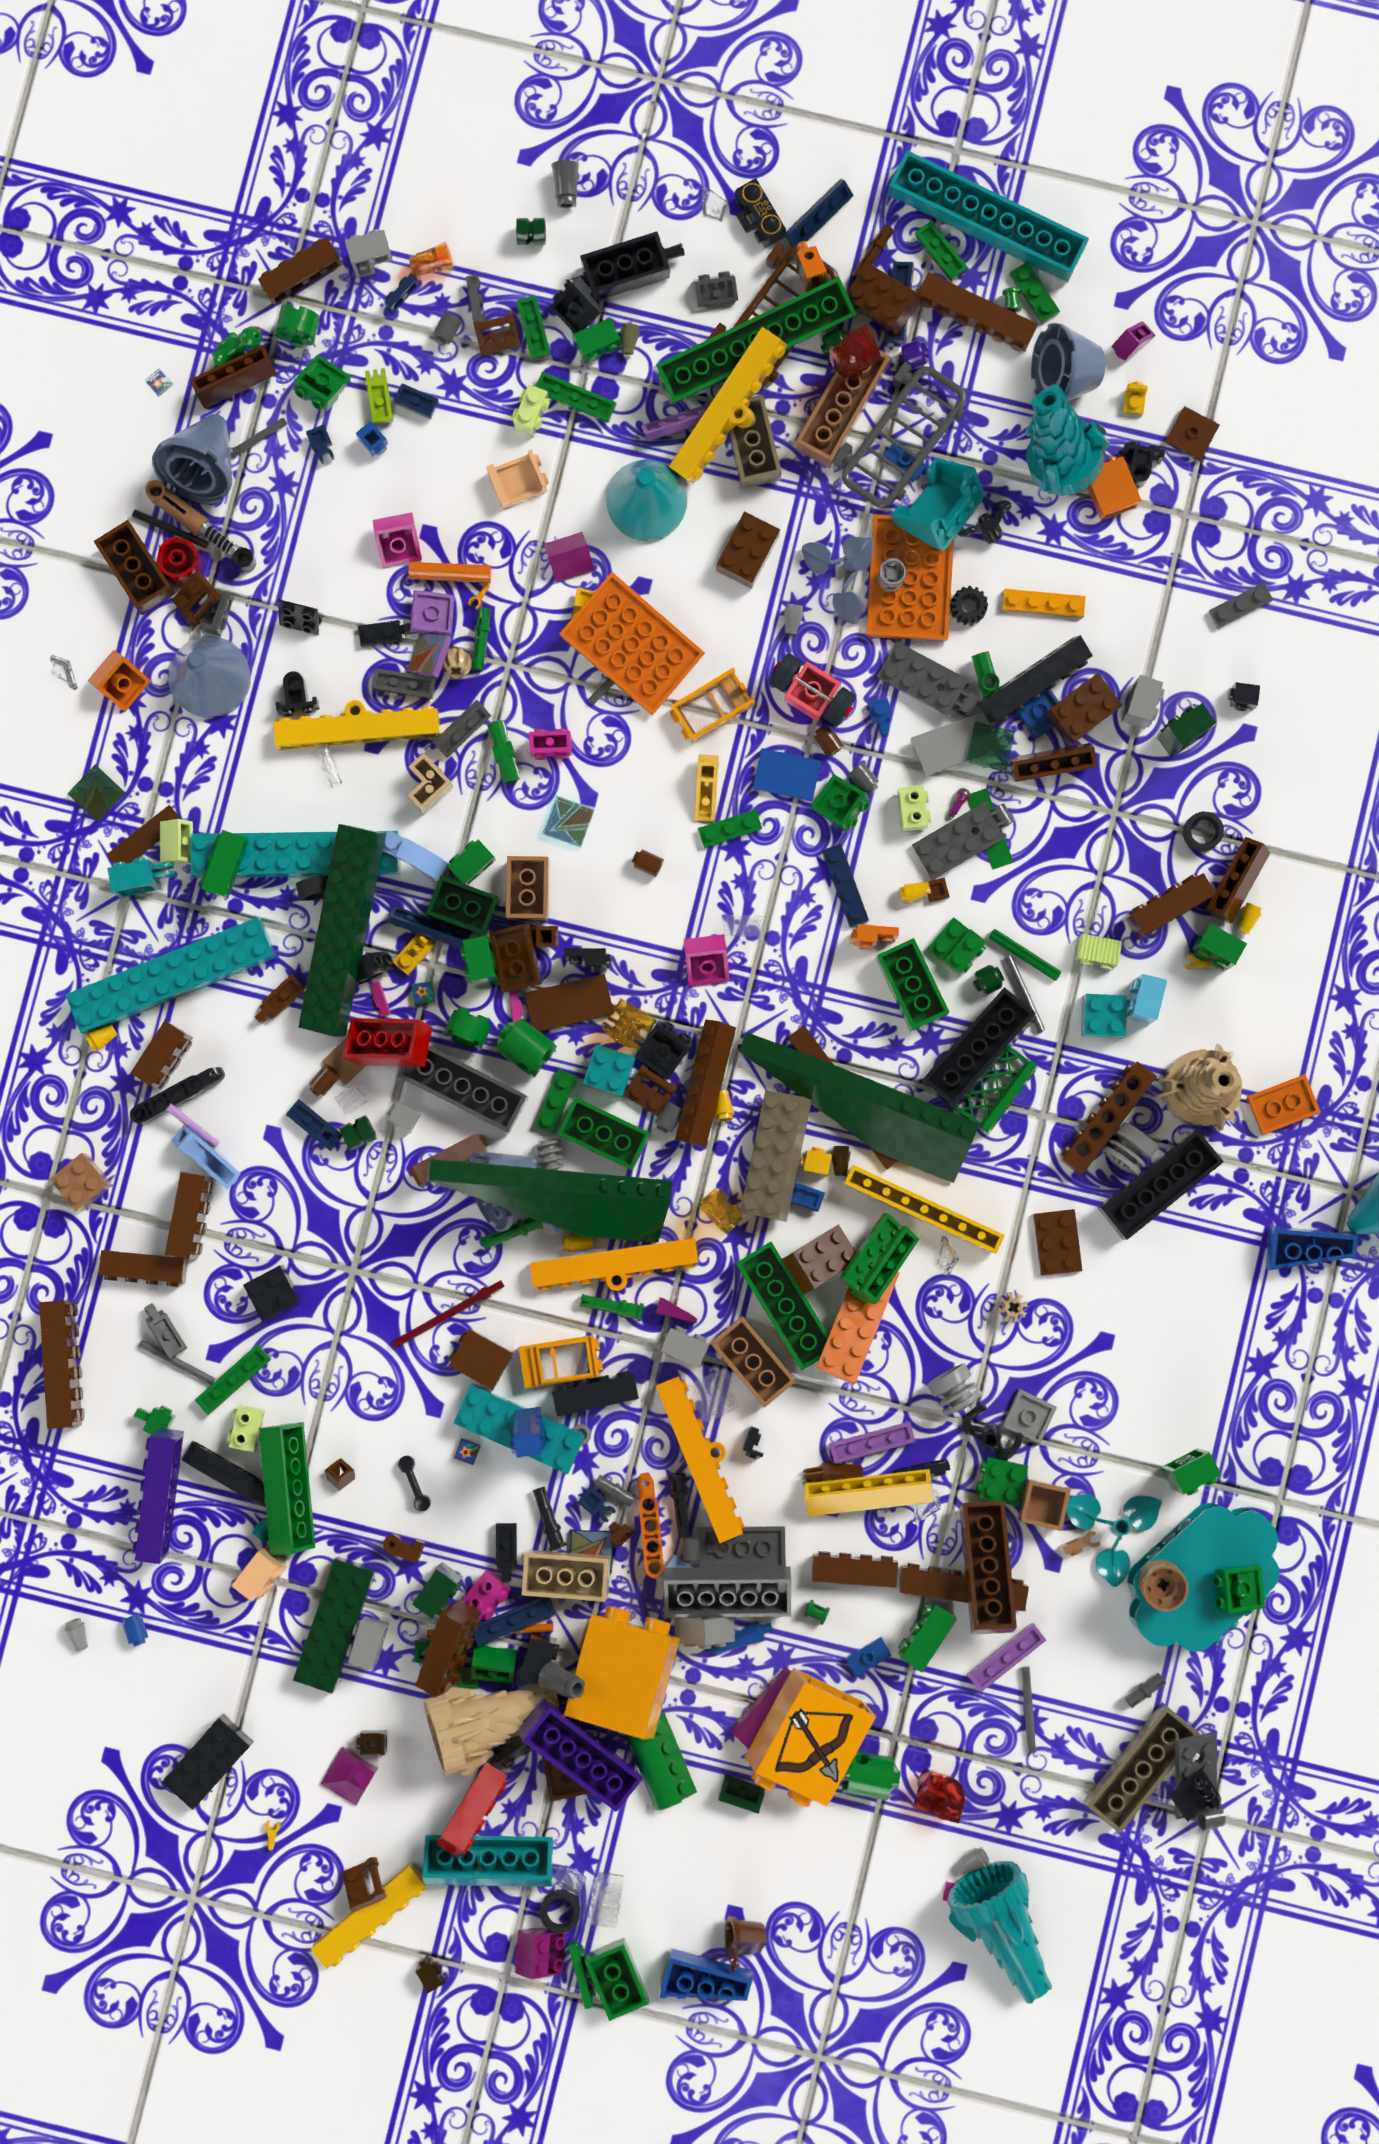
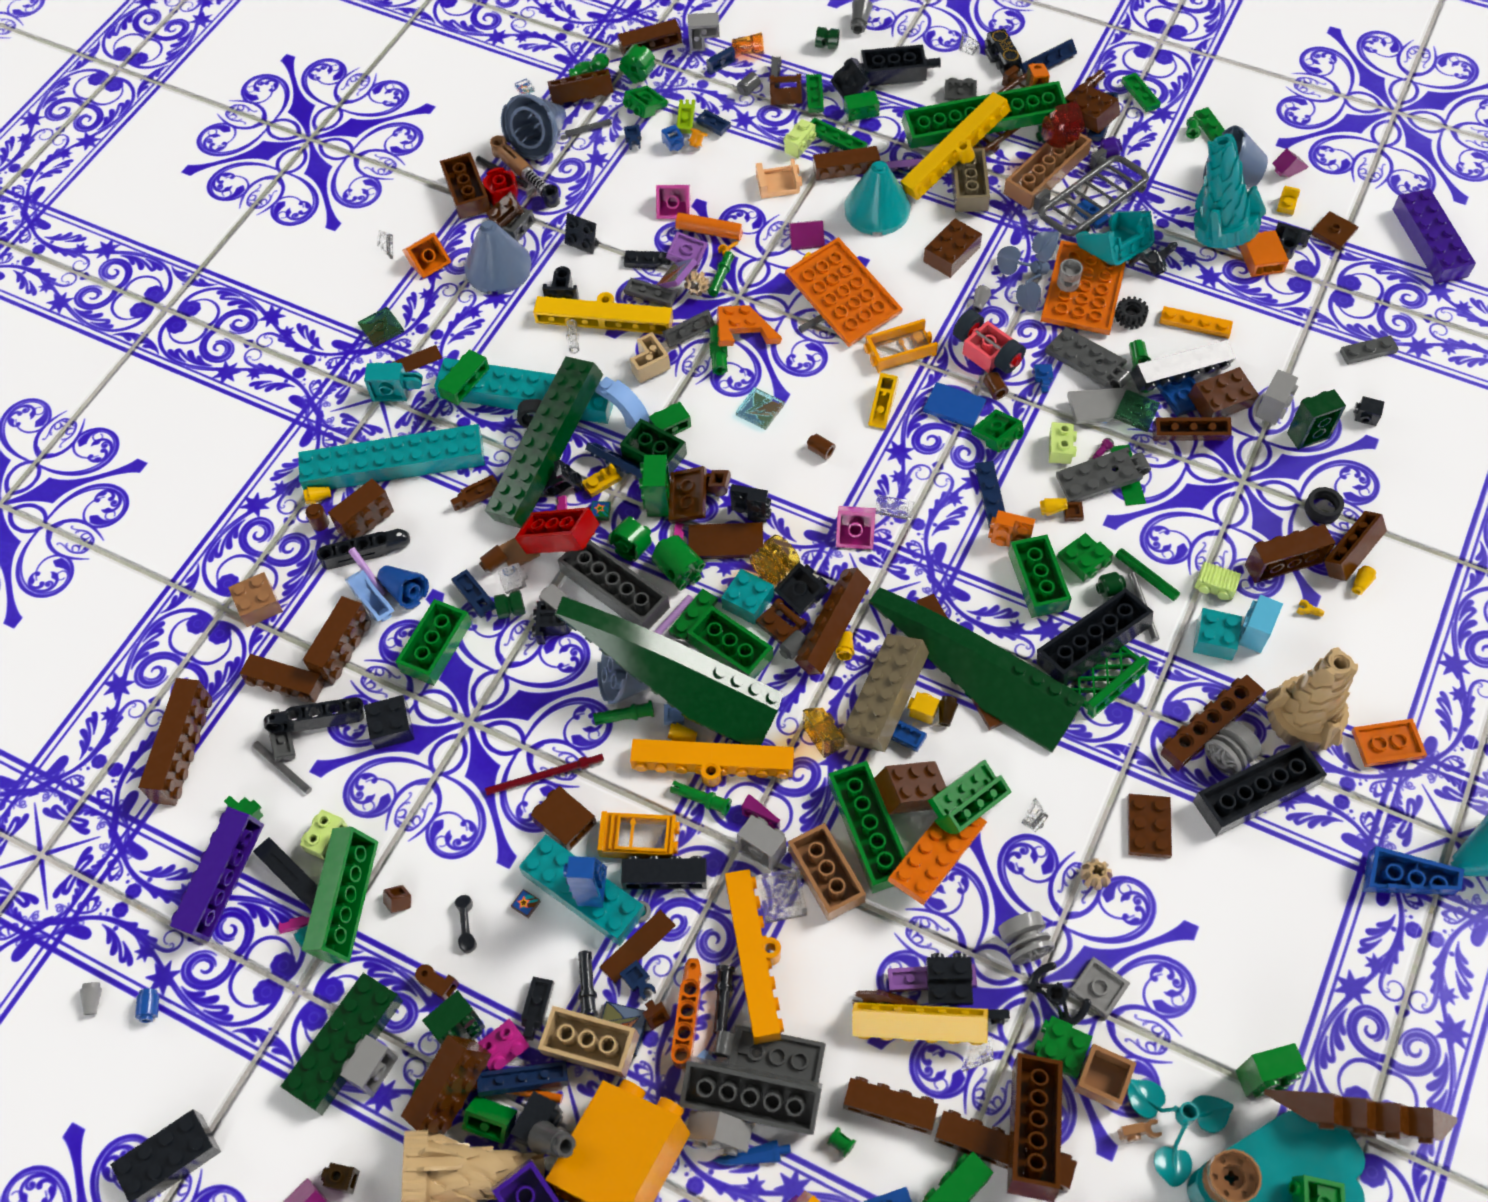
camera: 15 degrees right, 25 degrees down
(113, 1068) = (317, 517): none -> reddish brown brick
(175, 841) = (430, 363): yellowish green brick -> none
(183, 1305) = (325, 718): none -> black piece
(233, 1379) = (326, 791): green plate -> none
(235, 1133) = (404, 585): none -> blue cone
(249, 1518) = (293, 924): none -> dark pink piece
(259, 1574) = (285, 968): light nougat brick -> none
(291, 1194) = (433, 642): none -> green brick
(402, 432) = (696, 137): none -> light orange brick
(404, 1144) = (547, 623): none -> black pin
(458, 1152) = (568, 645): reddish brown slope -> none
(465, 1680) = (456, 1132): green tile -> none
(520, 706) = (742, 320): none -> orange wing
(527, 888) = (712, 443): medium nougat brick -> none
(533, 1107) = (674, 614): none -> lavender bar
(550, 743) = (759, 347): dark pink brick -> none
(586, 1468) = (638, 945): none -> reddish brown sticker
(596, 439) = (844, 162): none -> reddish brown brick
(614, 1490) = (660, 971): dark grey pin -> none
(629, 338) = (888, 105): olive cone -> none
(730, 828) = (897, 435): green plate -> none
(752, 1439) = (809, 948): black bracket -> none
(864, 778) = (1020, 412): dark grey brick -> none
(889, 1444) = (949, 980): none -> black plate
(923, 1209) = (1021, 766): yellow brick -> none
(976, 312) = (1164, 130): reddish brown brick -> none
(987, 216) = (1182, 74): teal brick -> none
(1218, 947) = (1333, 593): green brick -> none
(1276, 1499) = (1367, 1116): none -> reddish brown brick
(1306, 425) = (1433, 236): none -> dark purple brick

